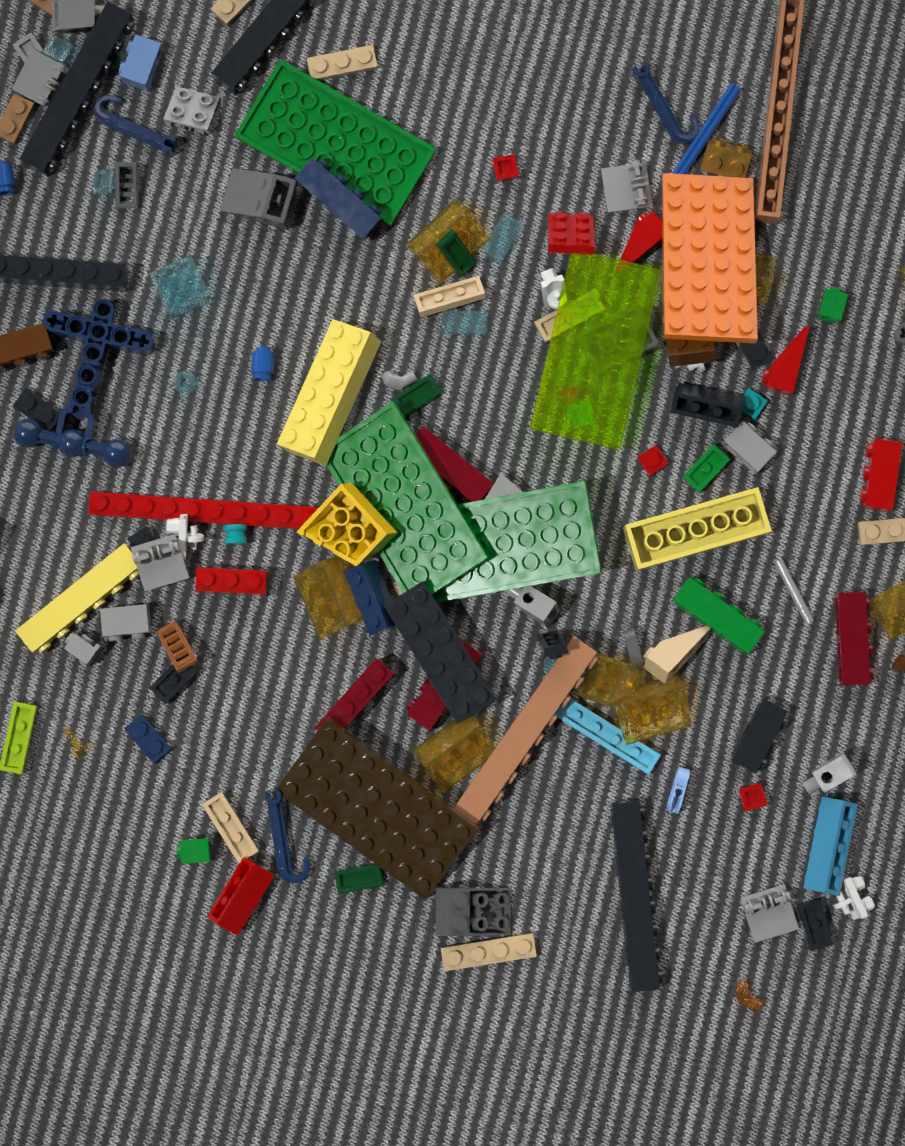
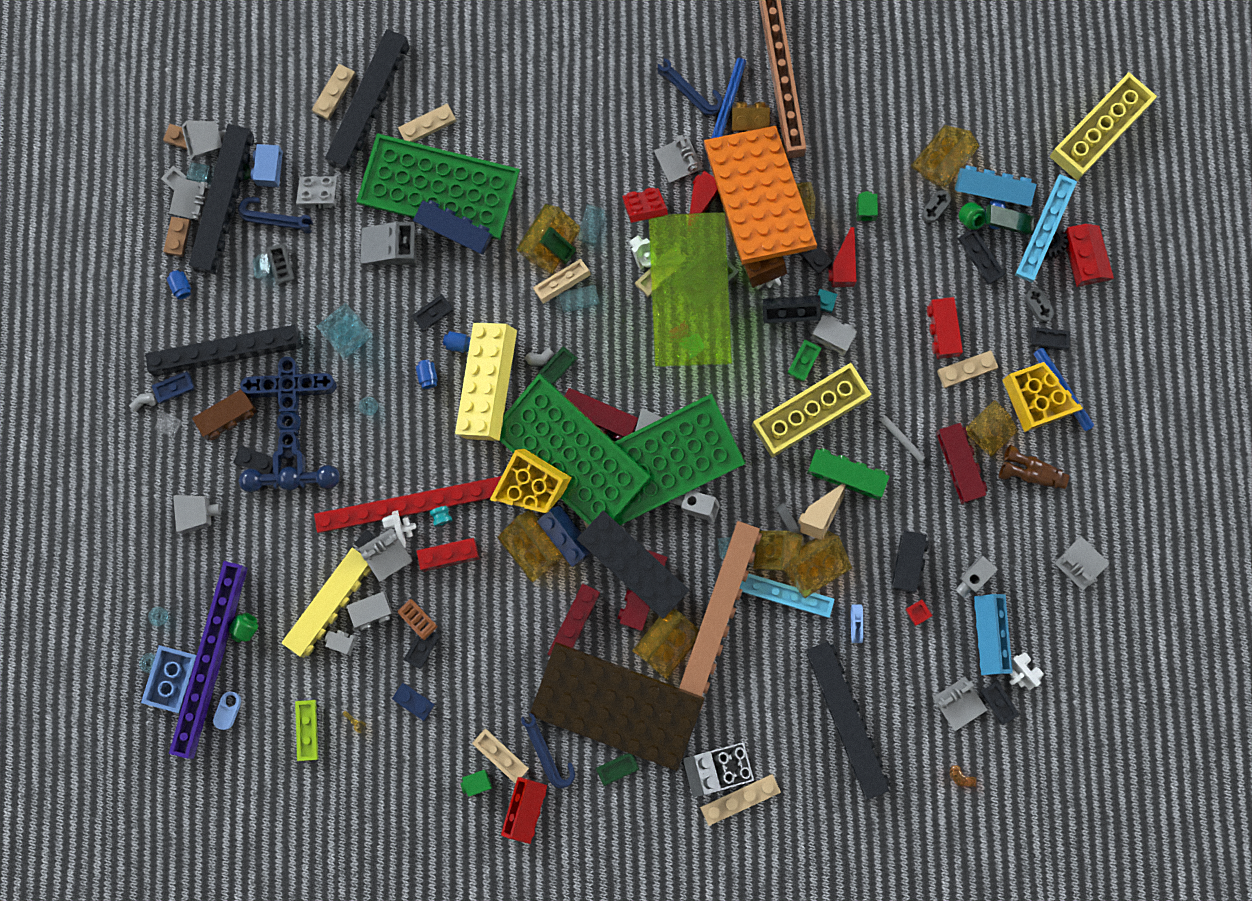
camera: 10 degrees left, 5 degrees down
(288, 292) = (432, 313): none -> black plate
(307, 335) = (456, 342): none -> blue brick
(505, 168) = (578, 169): red plate -> none
(552, 644) = (722, 532): black plate -> none
(652, 460) = (759, 366): red plate -> none

